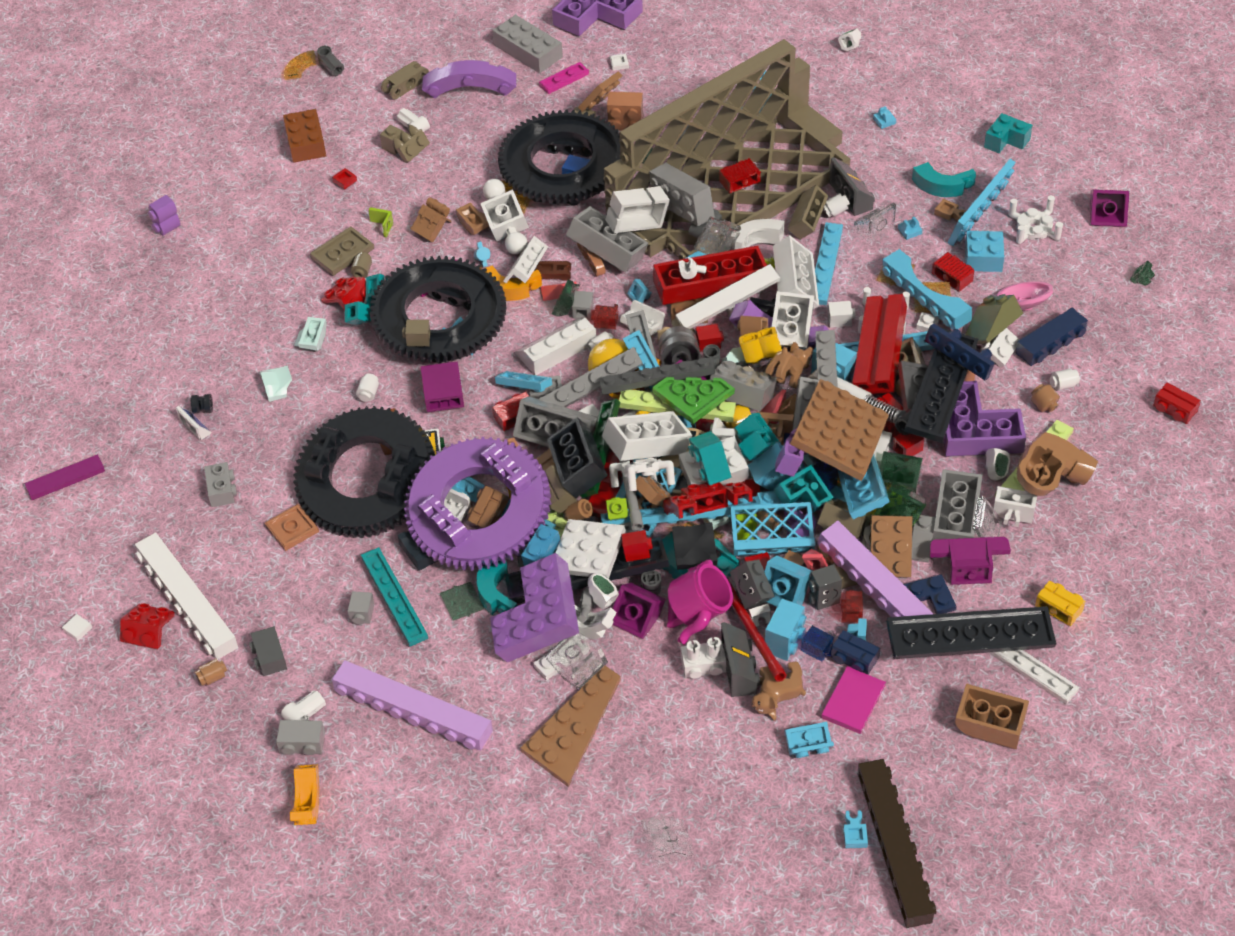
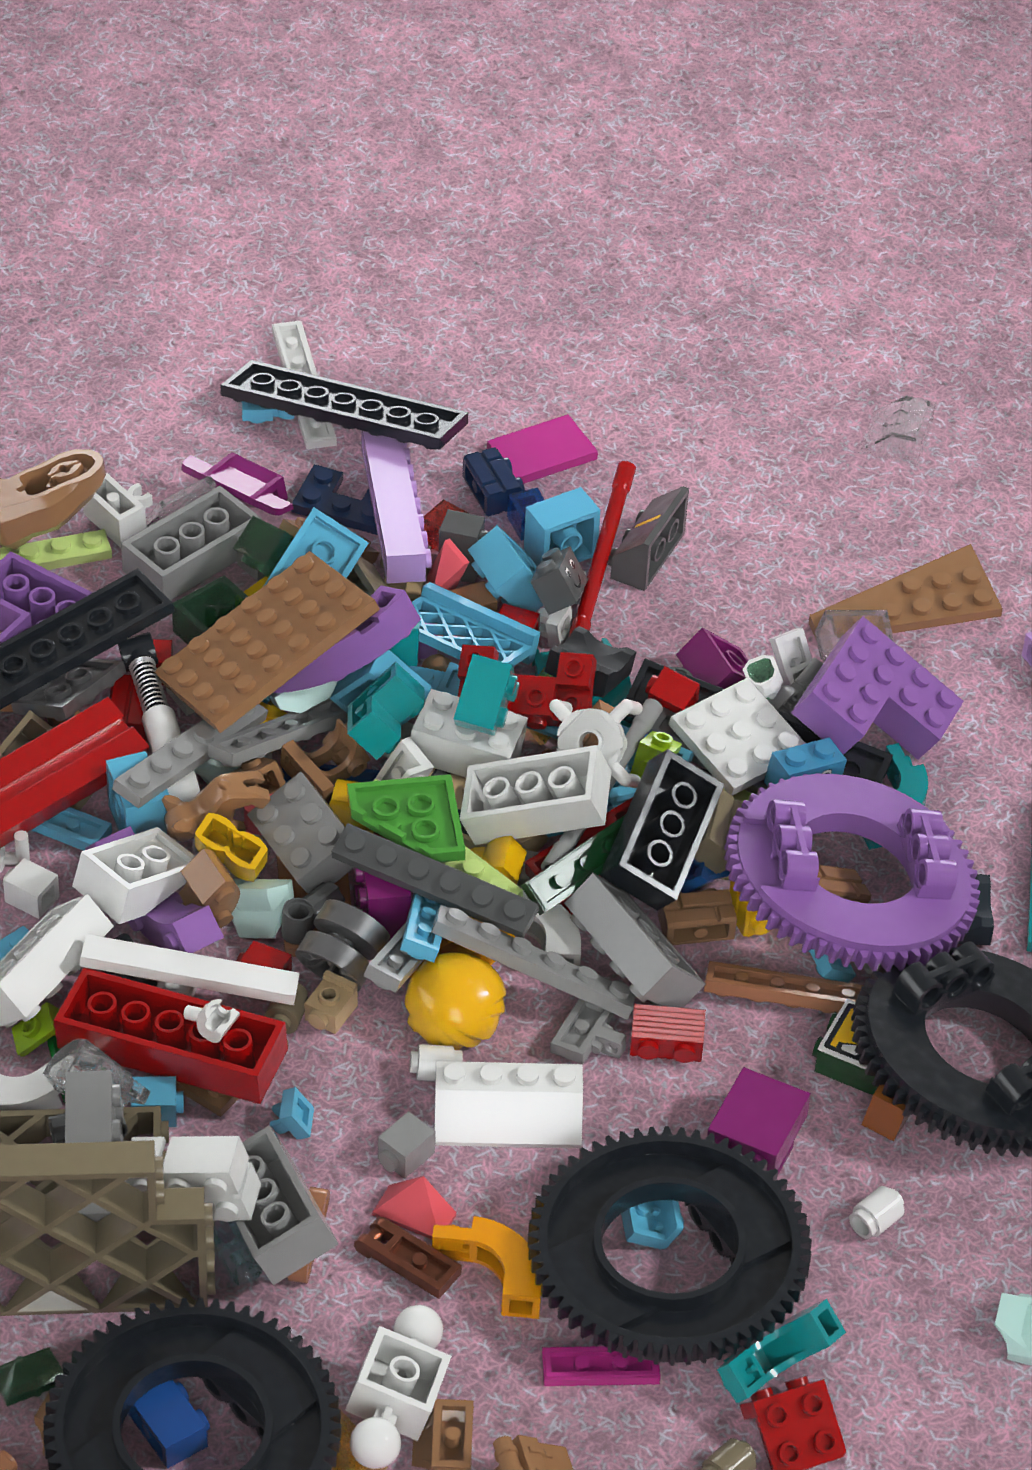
camera: 150 degrees left, 5 degrees down
(312, 334) = (914, 1376): light aqua slope -> none
(417, 332) = (751, 1180): dark tan brick -> none
(461, 601) = (959, 817): clear green piece -> none
(482, 254) = (494, 1349): medium azure piece -> none
(523, 381) = (618, 1059): medium azure plate -> none
(527, 260) = (445, 1258): white panel -> none
(565, 299) = (430, 1155): clear green slope -> none
(605, 316) = (385, 1099): clear red brick -> none
(653, 316) = (336, 1061): white bracket -> none
(698, 598) = (643, 605): dark pink piece -> none
(703, 658) = (687, 570): white brick -> none
(775, 692) = (643, 490): medium nougat animal -> none
(808, 739) = (642, 429): medium azure bracket -> none
(855, 833) = (673, 335): medium azure plate -> none
(858, 629) = (466, 495): medium azure tile -> none
(896, 844) = (638, 306): dark brown brick -> none
(991, 716) = (407, 333): medium nougat brick -> none
(997, 463) = (76, 571): white rock -> none
(1060, 602) = (189, 399): yellow brick -> none

